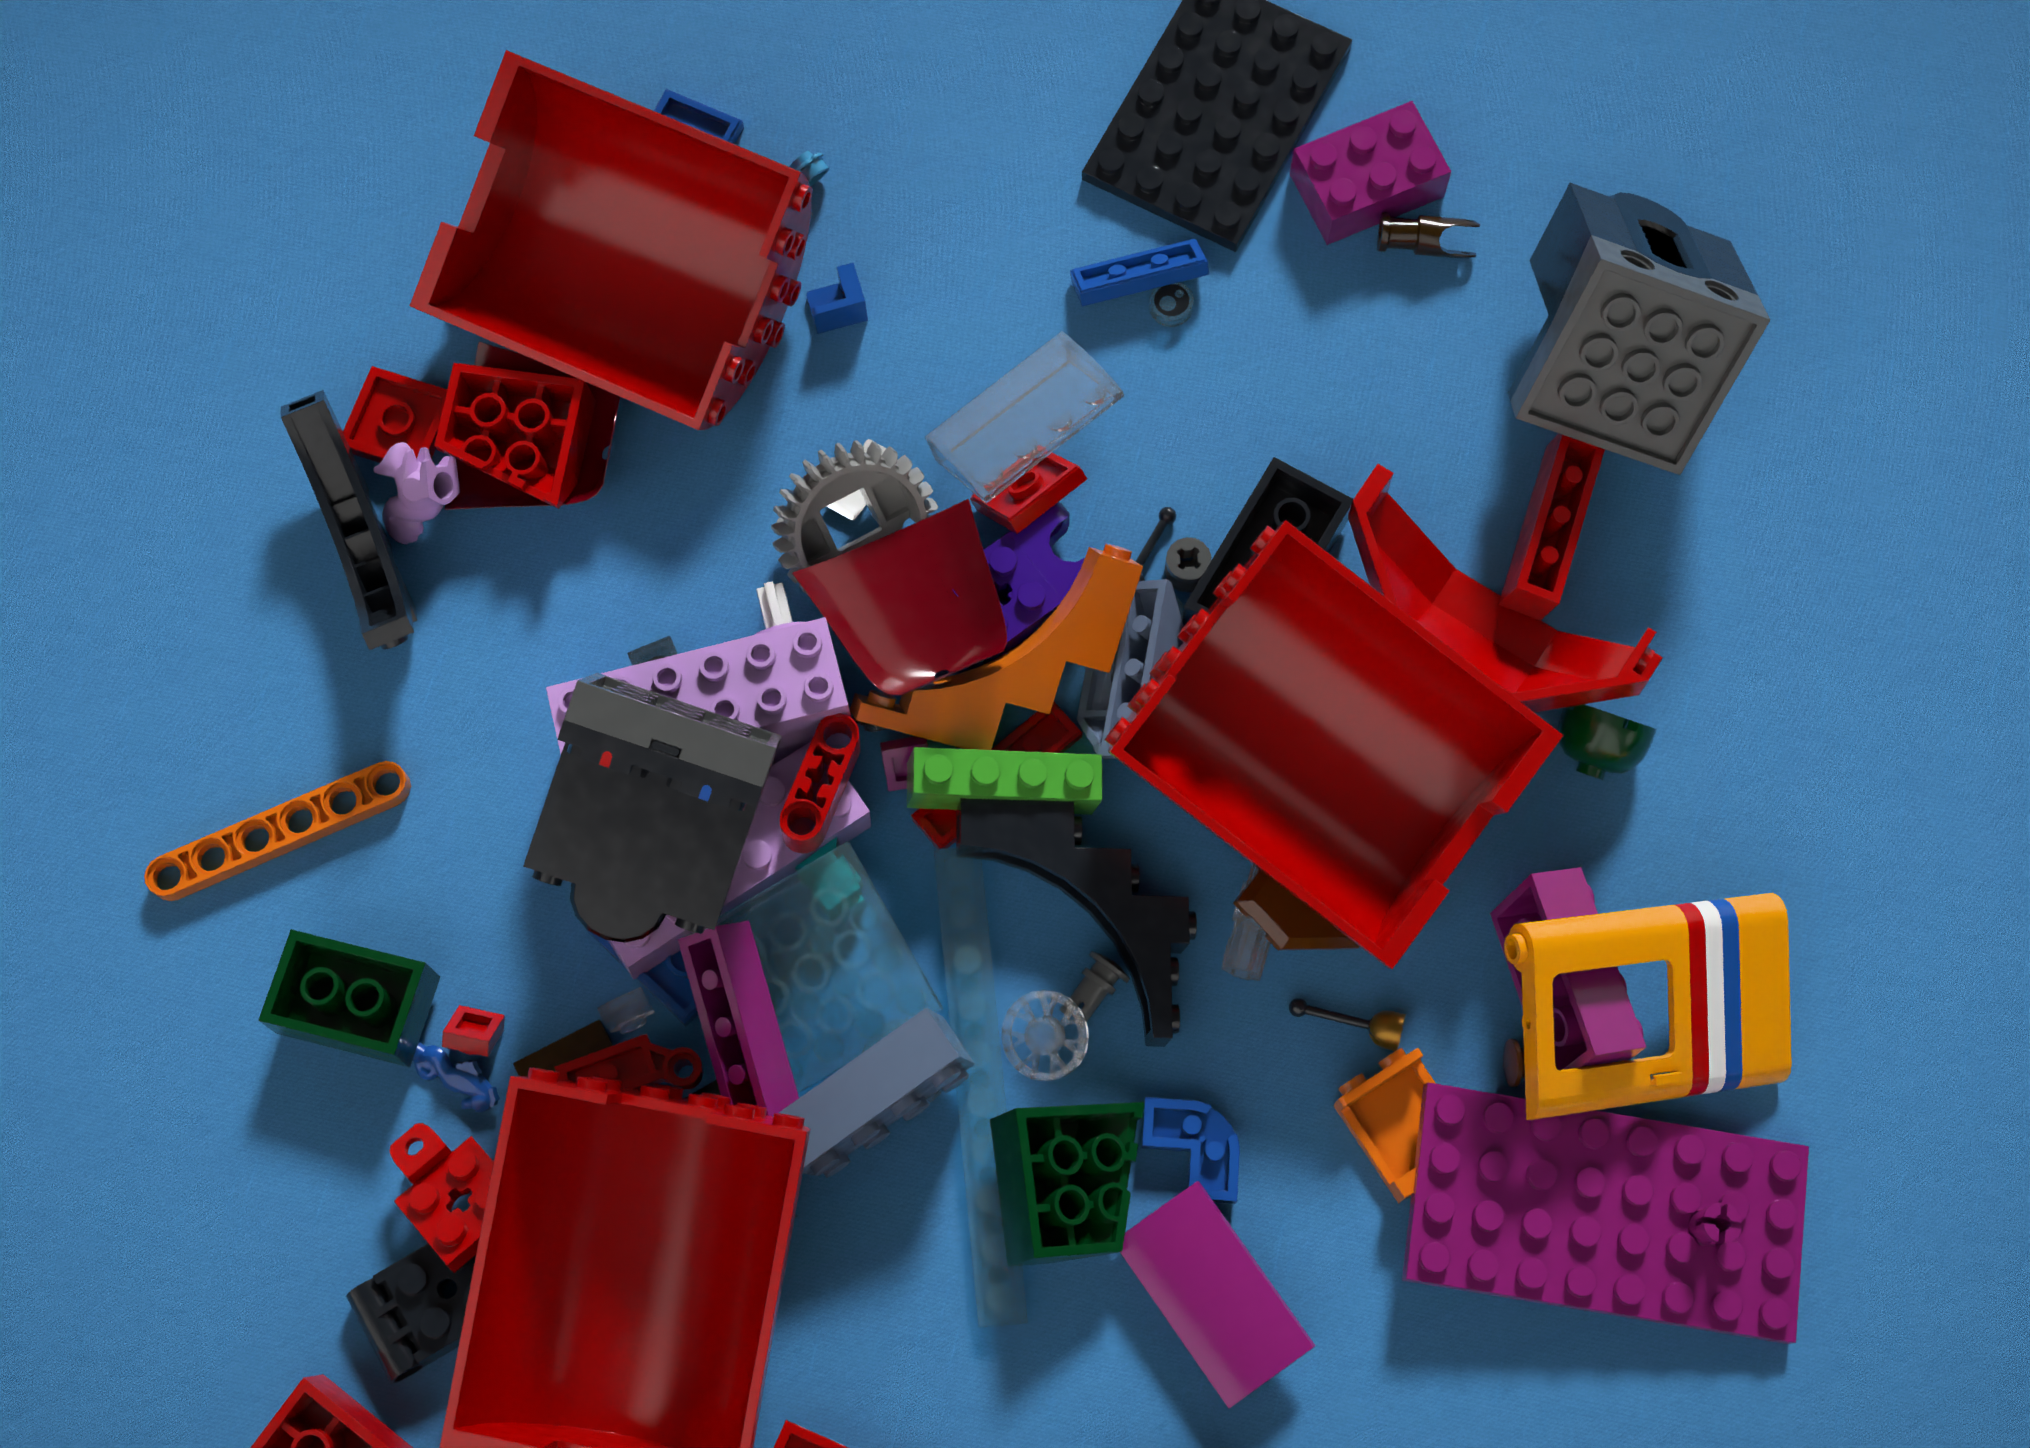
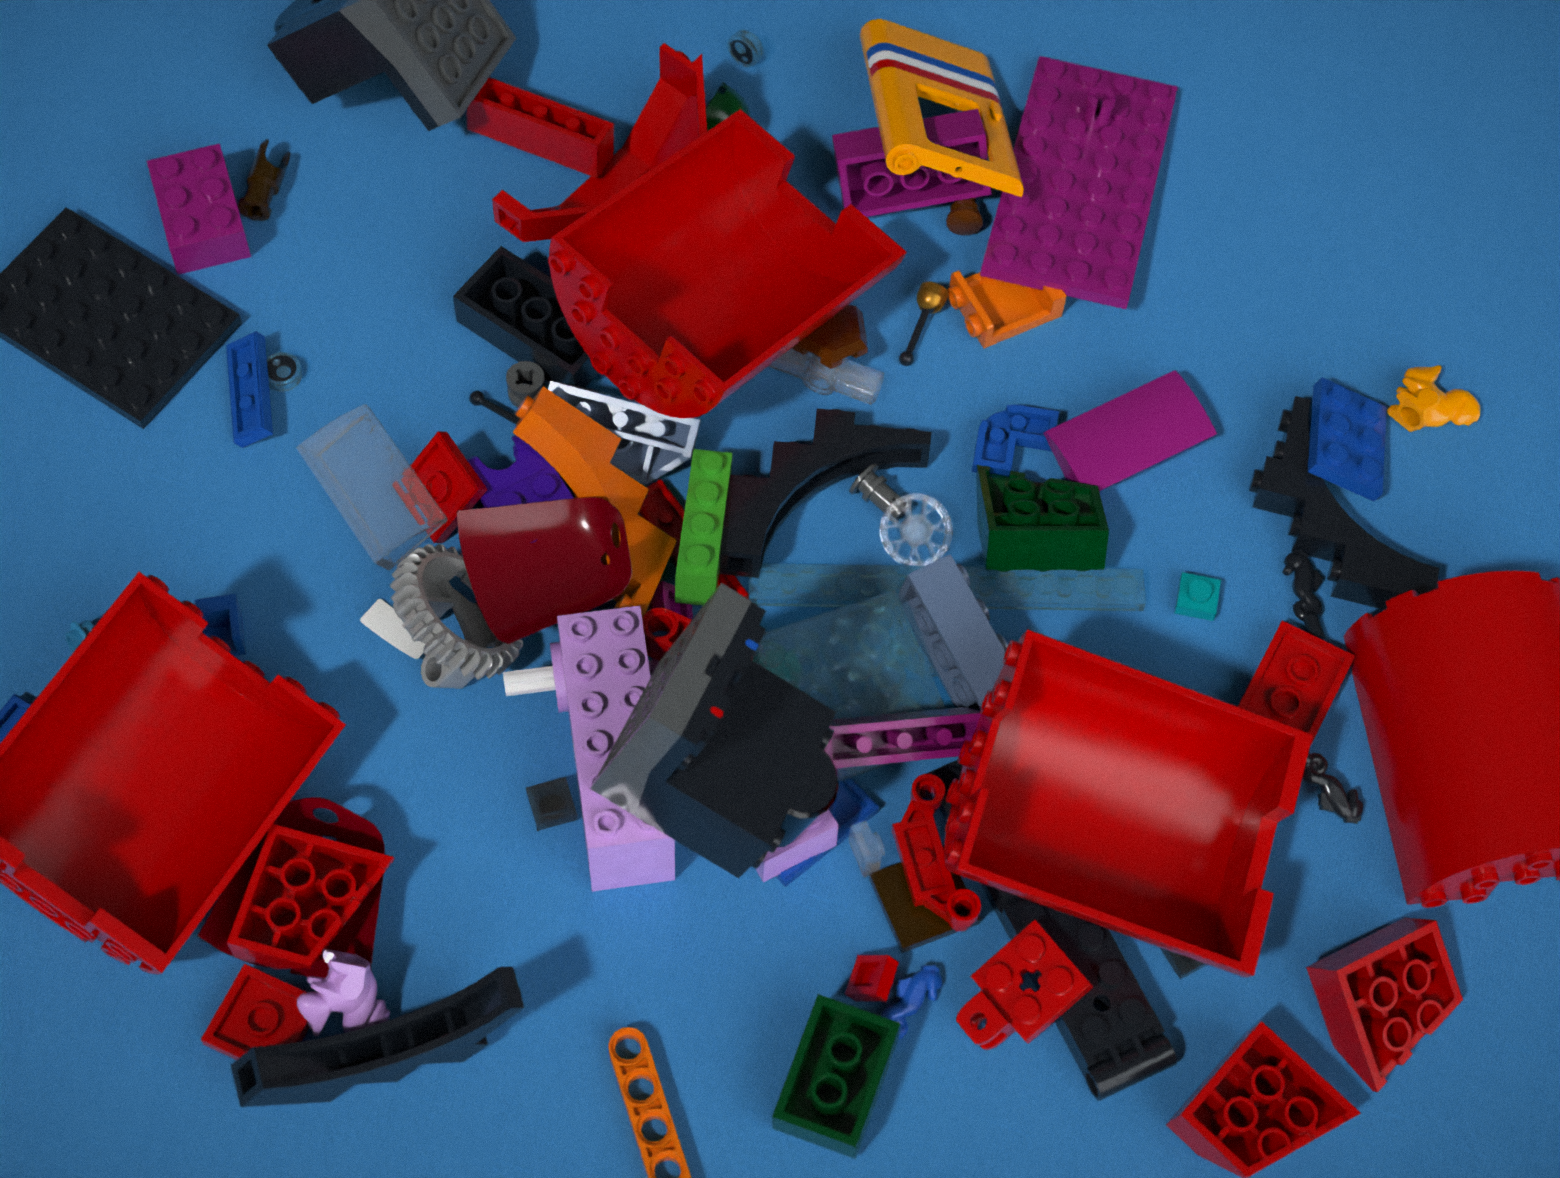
camera: 90 degrees left, 10 degrees down
(1001, 1394) = (1197, 596): none -> teal plate
(1737, 760) = (745, 48): none -> clear light blue tile

